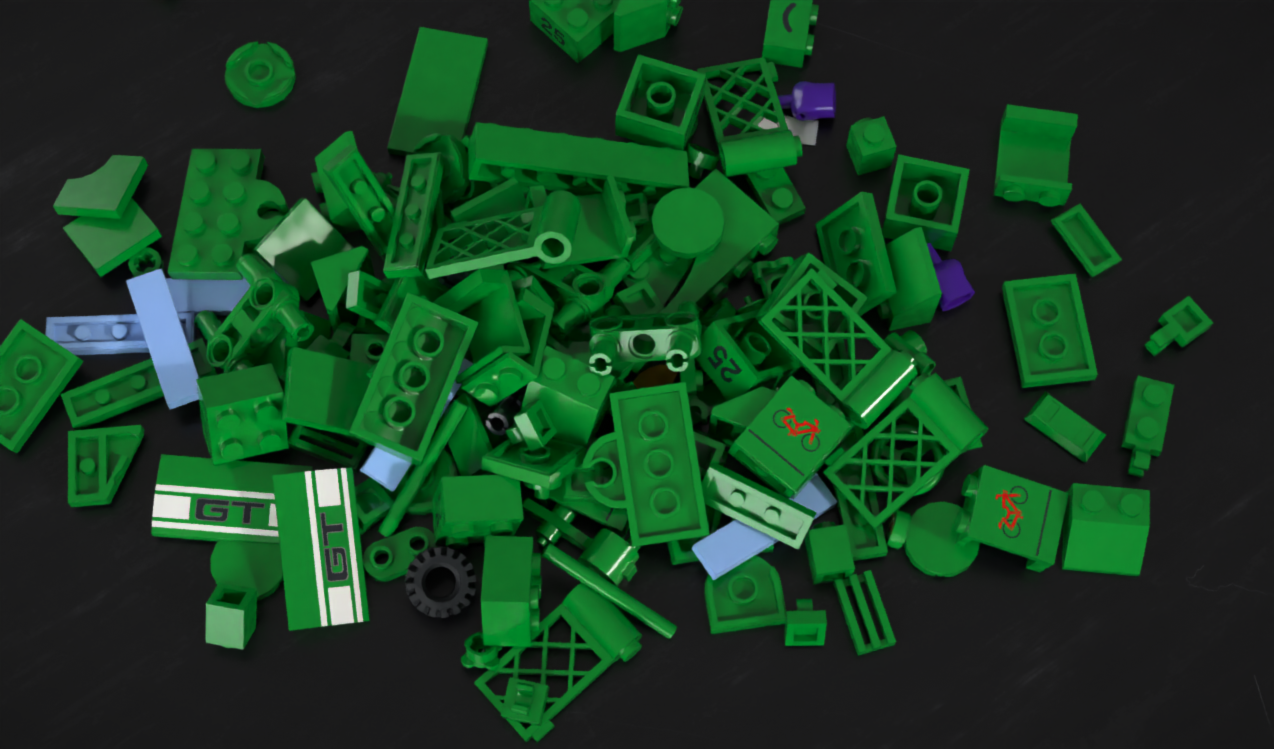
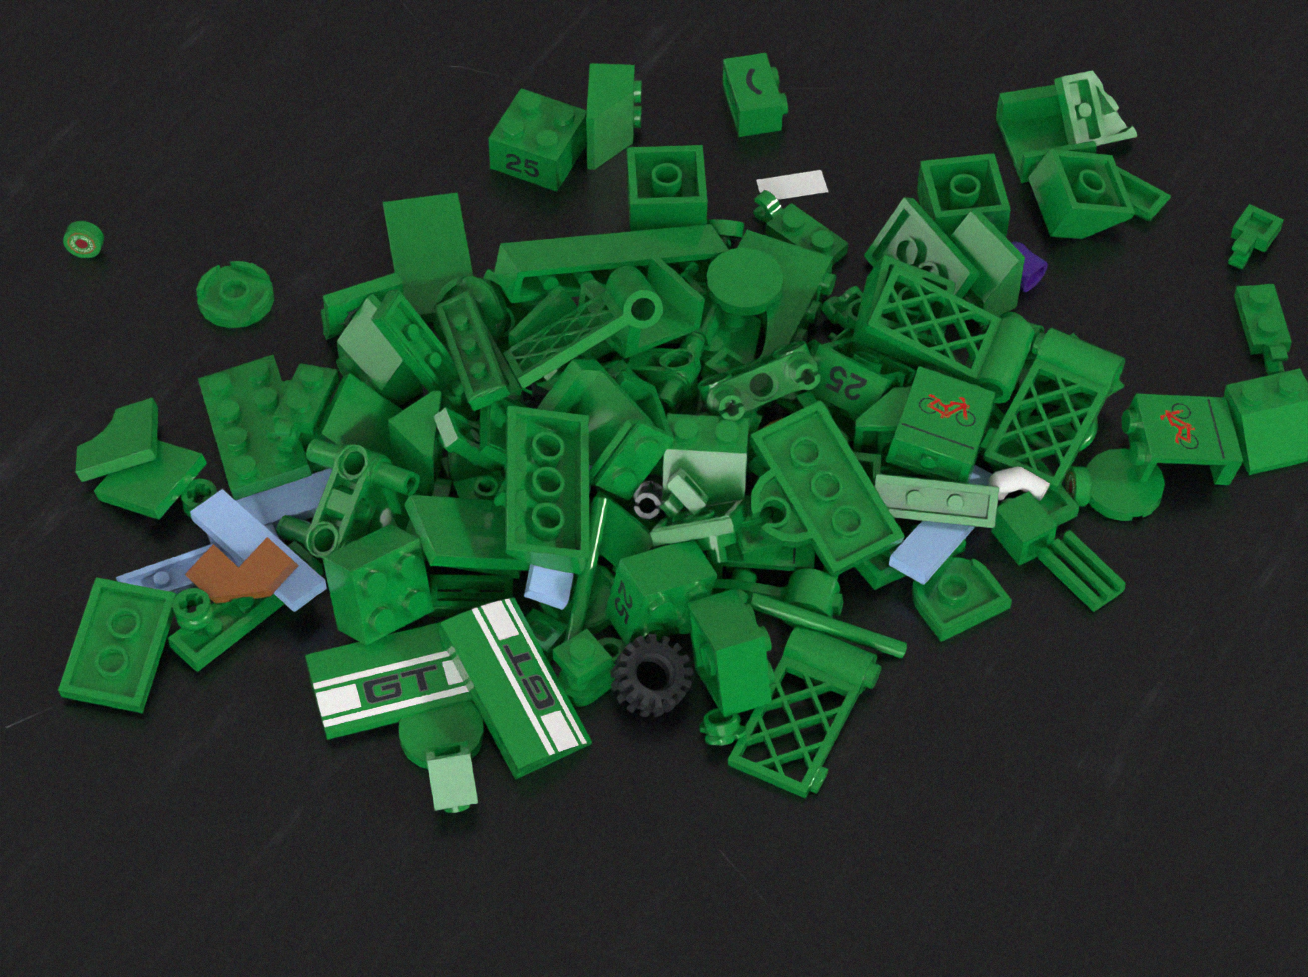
camera: 20 degrees left, 15 degrees down
(94, 384) = (187, 599): none -> green bush
(99, 462) = (238, 689): green wing -> none
(147, 368) = (256, 577): none -> dark orange tile
(256, 213) = (303, 404): none -> green plate
(365, 129) = (343, 304): none -> green slope
(388, 543) = (582, 658): none -> green plate
(525, 701) = (790, 754): green tile -> none
(754, 147) = (773, 201): green piece -> none
(804, 625) = (1032, 597): green tile -> none
(810, 101) = (804, 152): dark purple piece -> none
(839, 507) = (1018, 479): none -> white arm
(870, 145) = (885, 170): green brick -> none
(1036, 232) = (1079, 193): none -> green slope
(1049, 330) = (1134, 275): green plate -> none
(1065, 427) = (1190, 353): green tile -> none
(1081, 151) = (1089, 111): none -> wing

